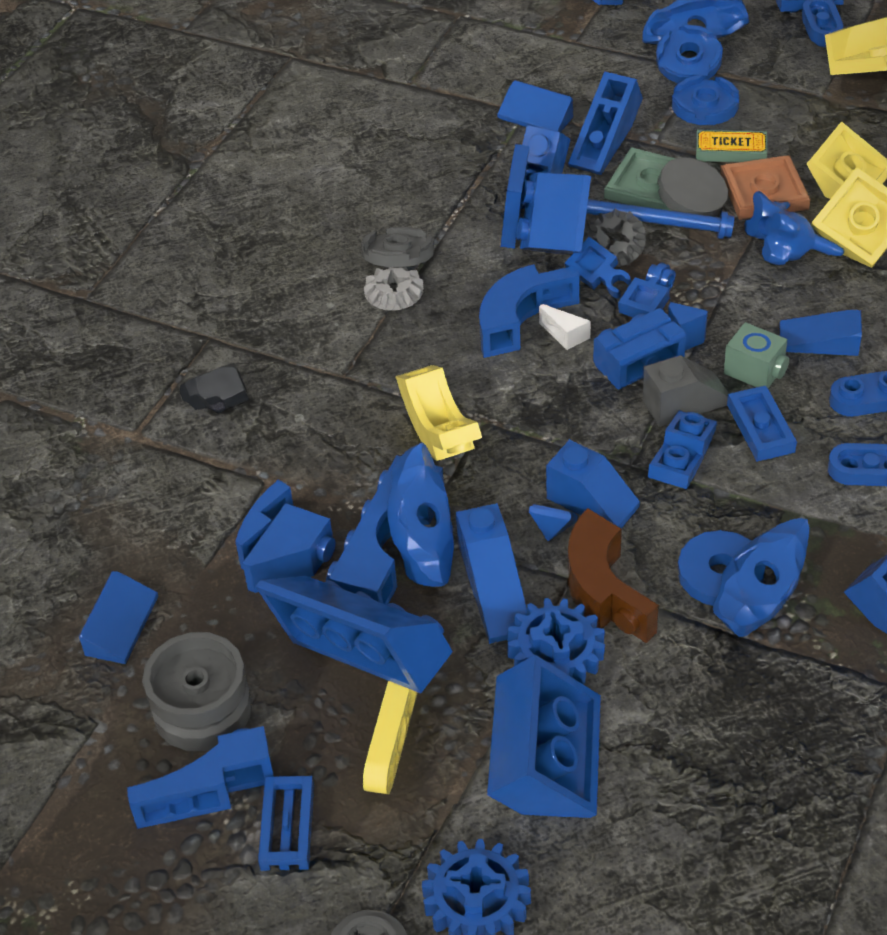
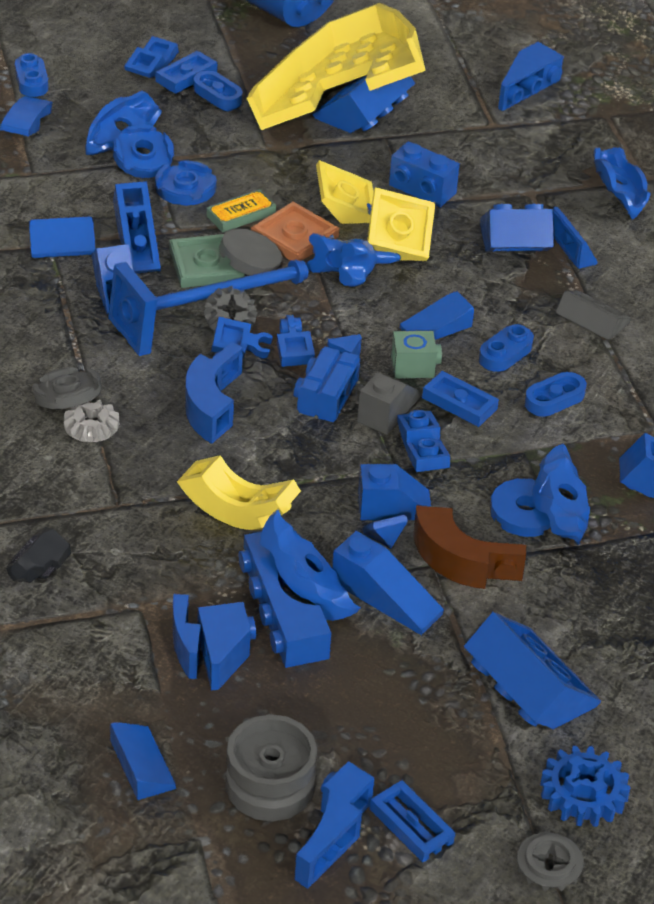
camera: 45 degrees left, 5 degrees down
(358, 629) = (352, 663): blue slope -> none
(388, 738) = (417, 710): light yellow beam -> none
(554, 213) = (190, 307): blue slope -> none
(559, 638) = (471, 601): blue gear -> none
(564, 327) = (253, 393): white piece -> none

